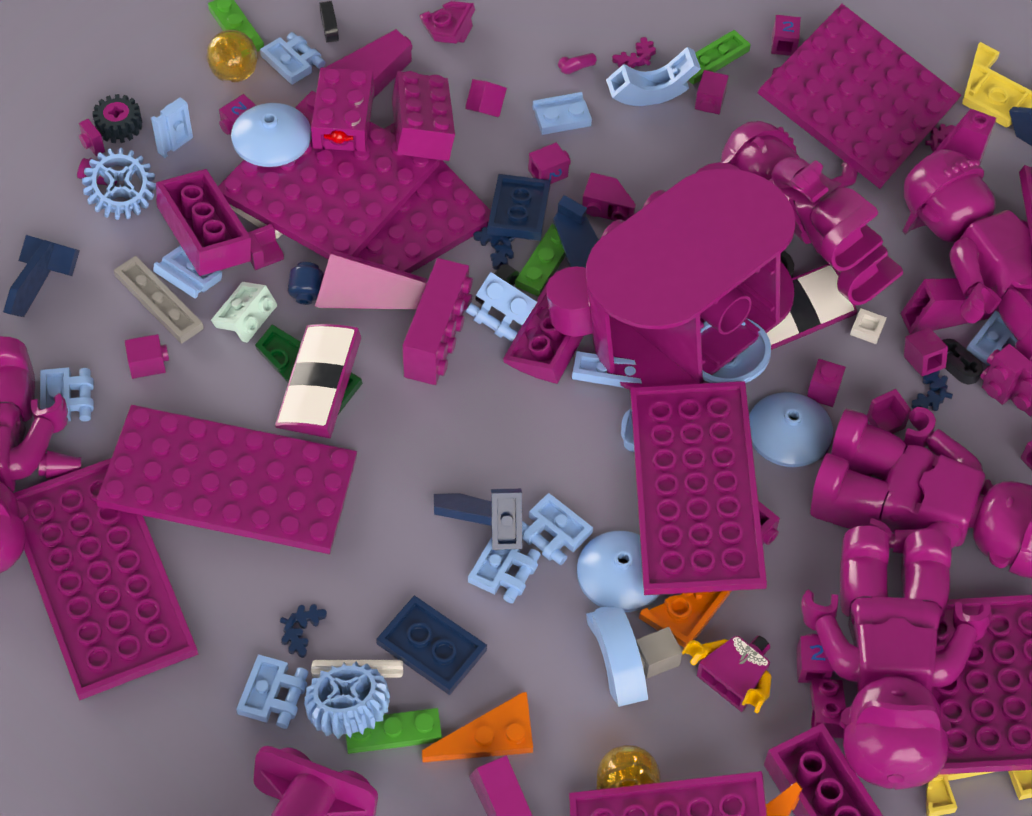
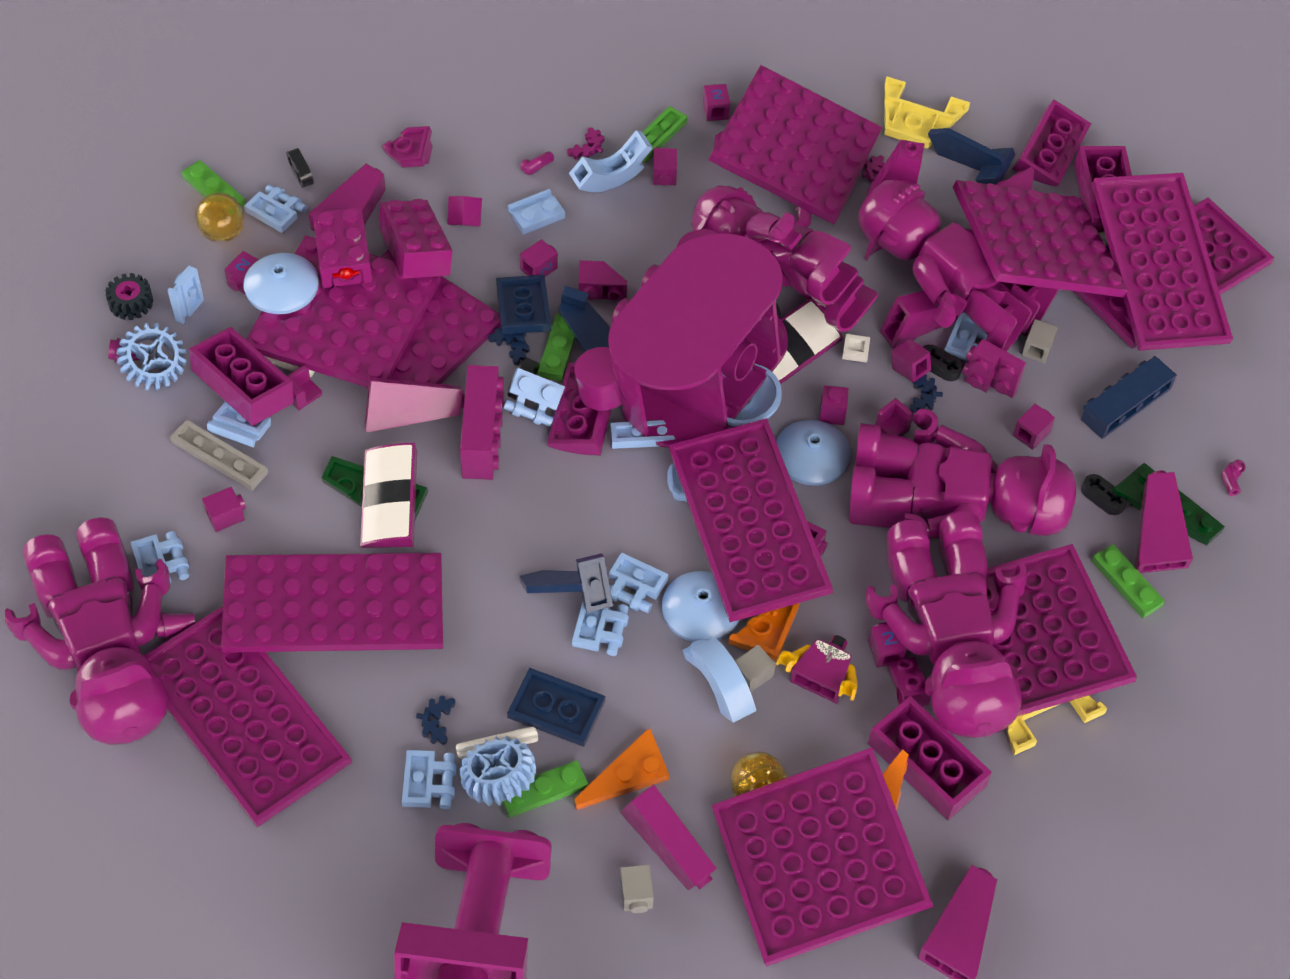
camera: 15 degrees left, 0 degrees up
(41, 259) = (100, 438): dark blue piece -> none
(91, 137) = (110, 319): magenta plate -> none
(245, 310) = (302, 448): light aqua bracket -> none
(305, 282) = (350, 412): dark blue head -> none

